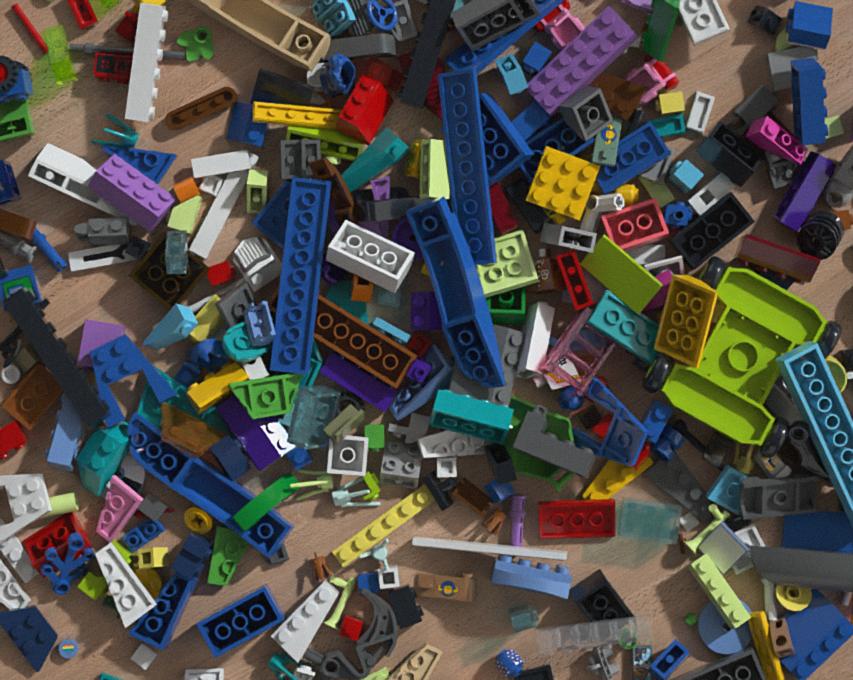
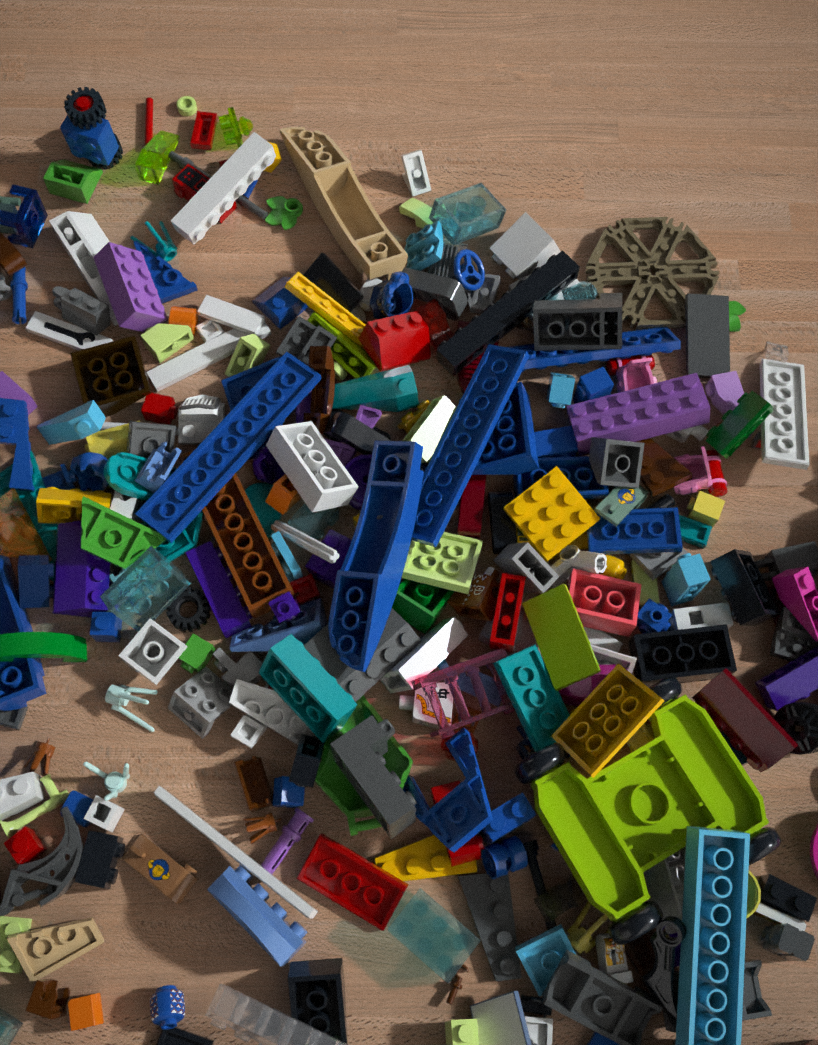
camera: 30 degrees right, 20 degrees down
(137, 247) = (98, 336): black plate -> none
(176, 252) = (127, 355): clear light blue slope -> none
(201, 108) = (247, 262): reddish brown plate -> none
(324, 482) = (112, 669): yellowish green plant -> none
(344, 424) = (171, 616): olive panel -> none
(372, 482) = (160, 699): lime bracket -> none
(383, 525) = (142, 755): light yellow plate -> none
(395, 312) = (305, 541): none -> white axle
(440, 489) = (224, 752): black tile -> none
(523, 617) = (217, 959): clear light blue brick -> none
(567, 402) = (424, 744): blue brick -> none
(589, 416) = (435, 775): dark brown tile -> none
(689, 521) = (478, 969): white sticker -> none
(699, 112) = (731, 536): white tile -> none
(719, 517) = (466, 999): yellowish green piece -> none

